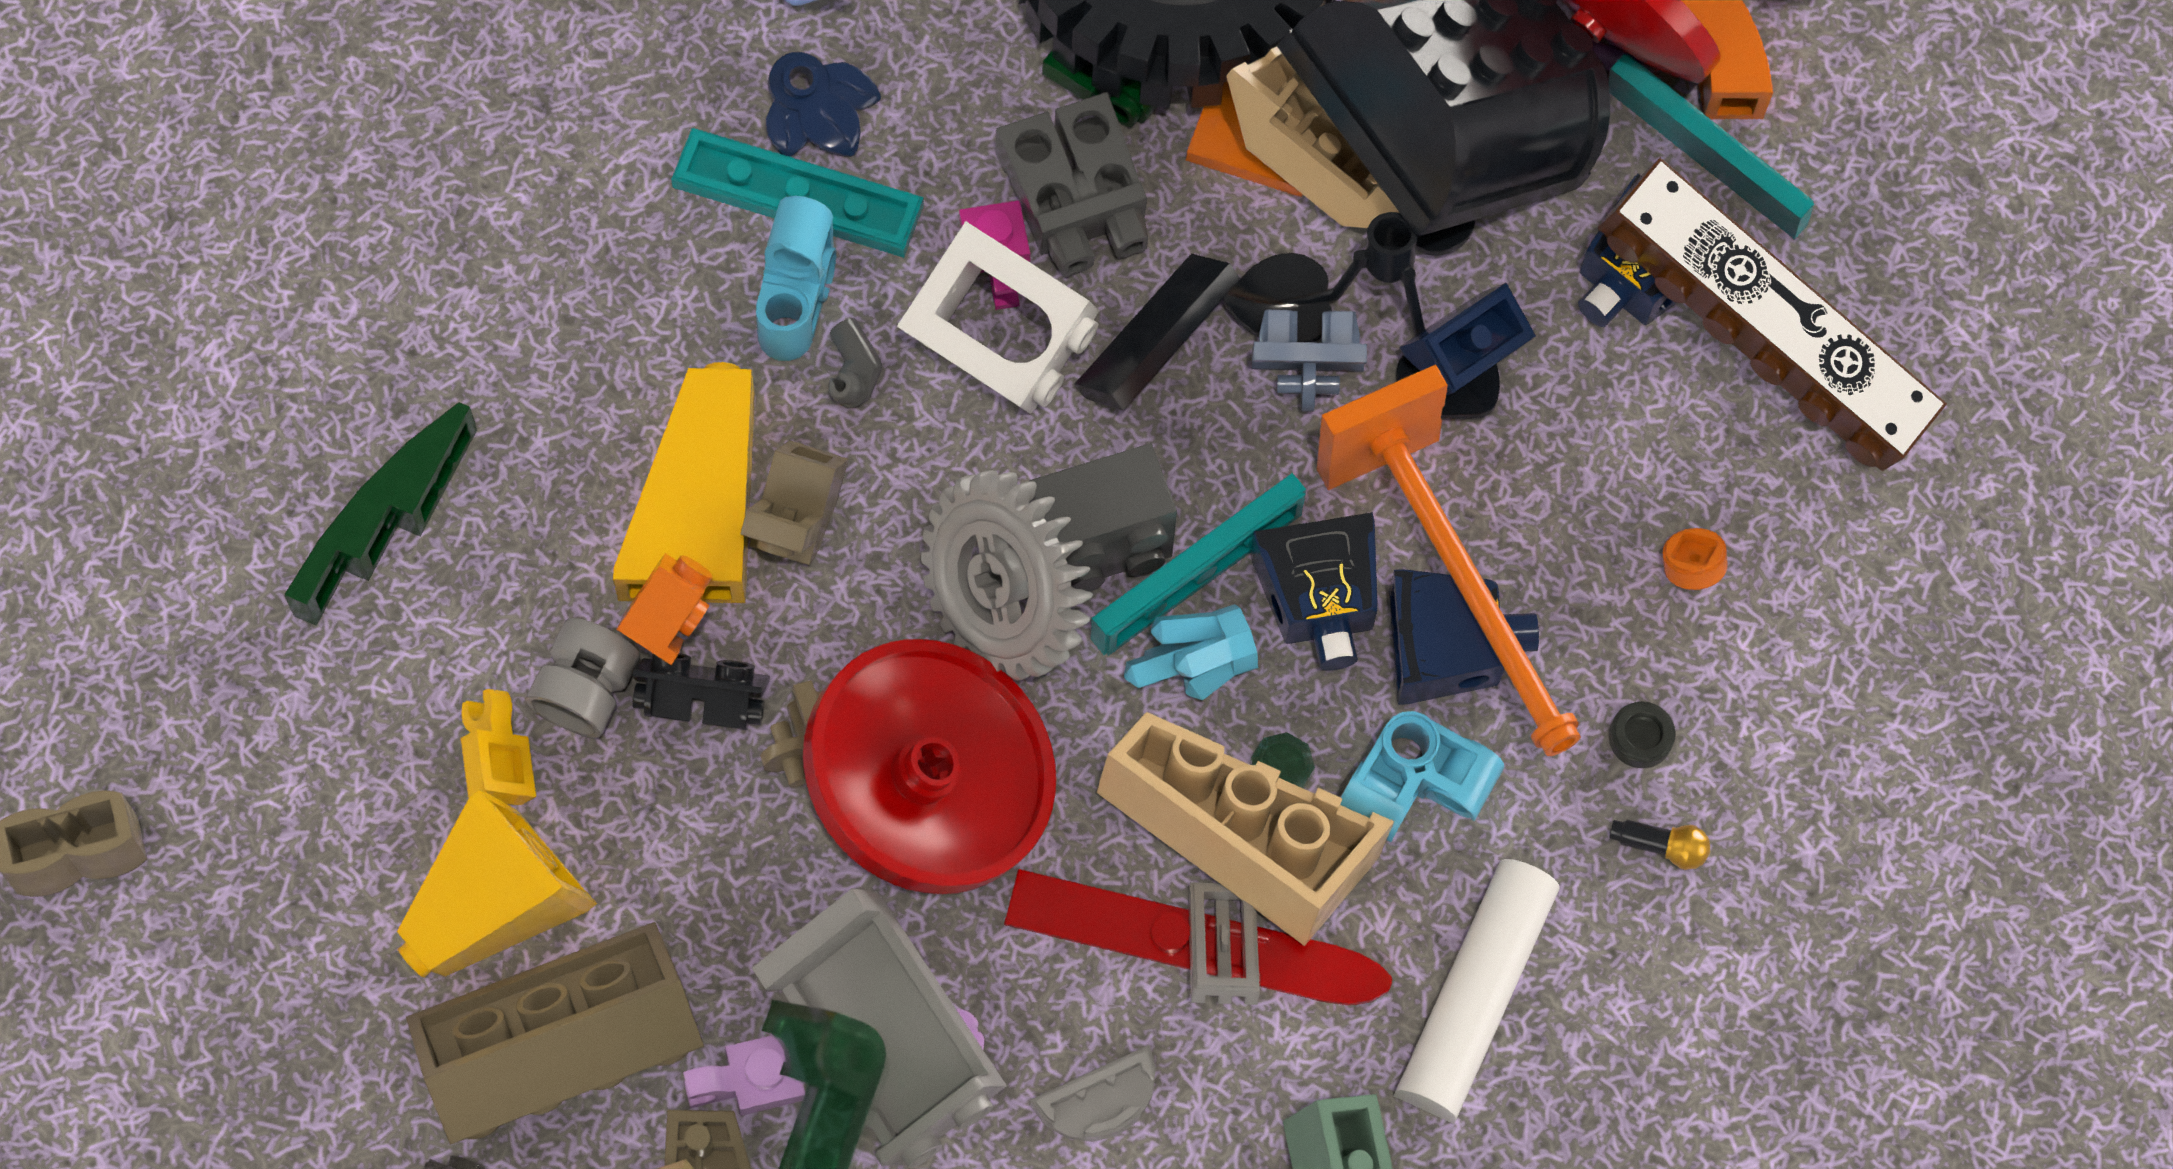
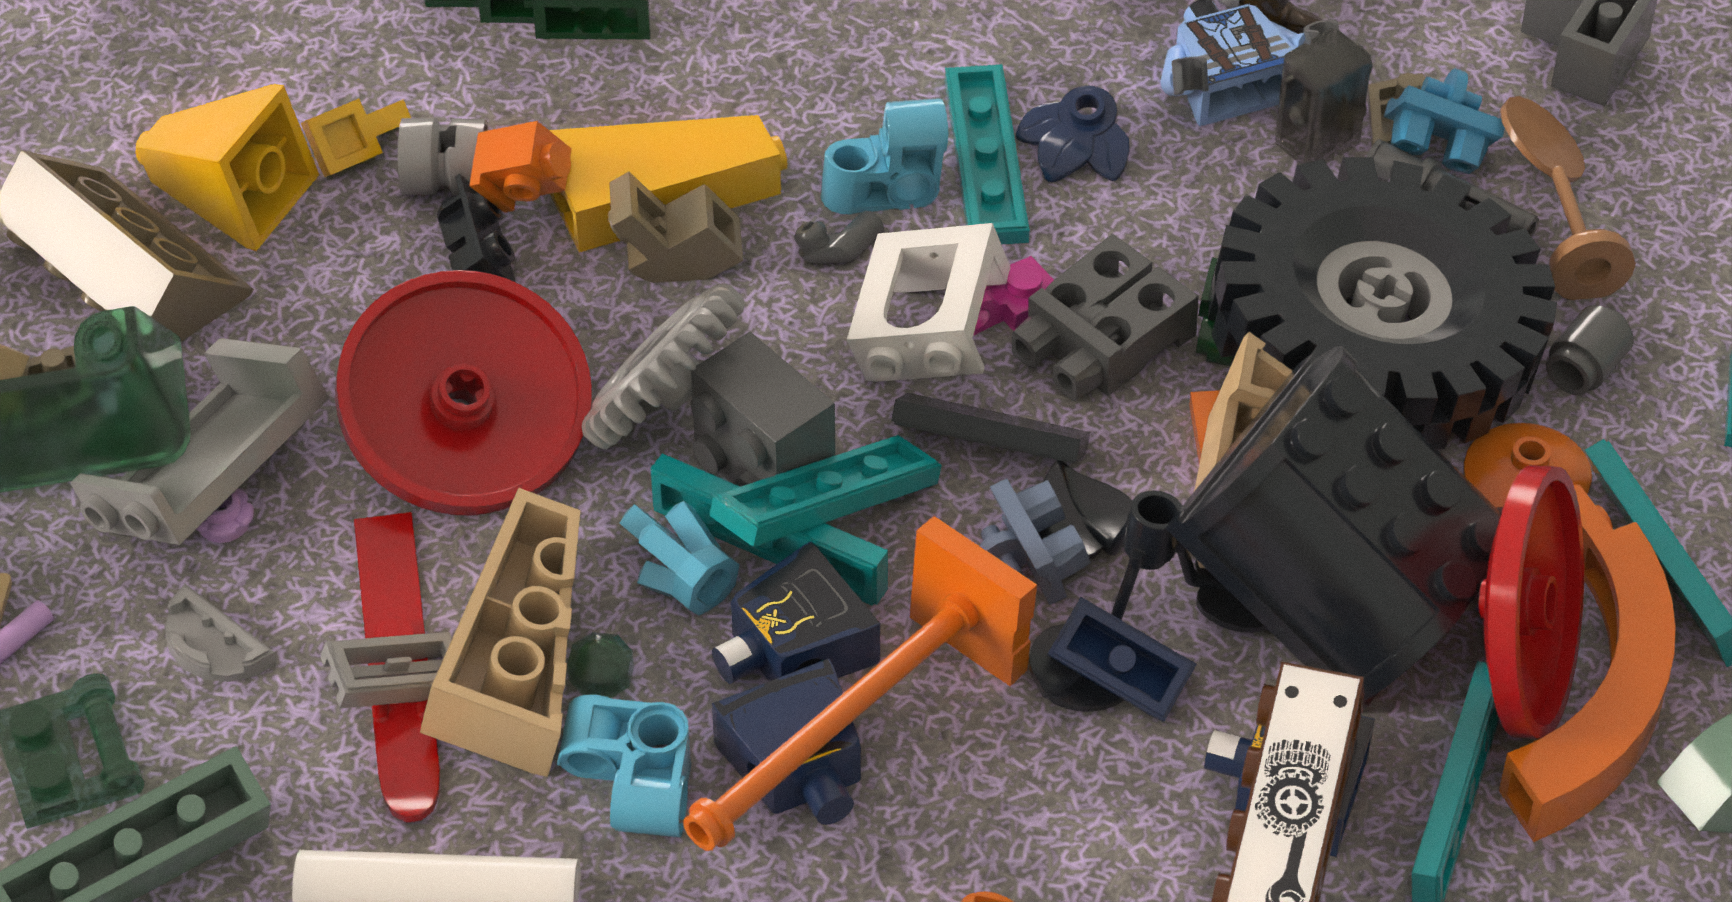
camera: 70 degrees right, 20 degrees down
(1206, 511) = (824, 490): none -> teal tile

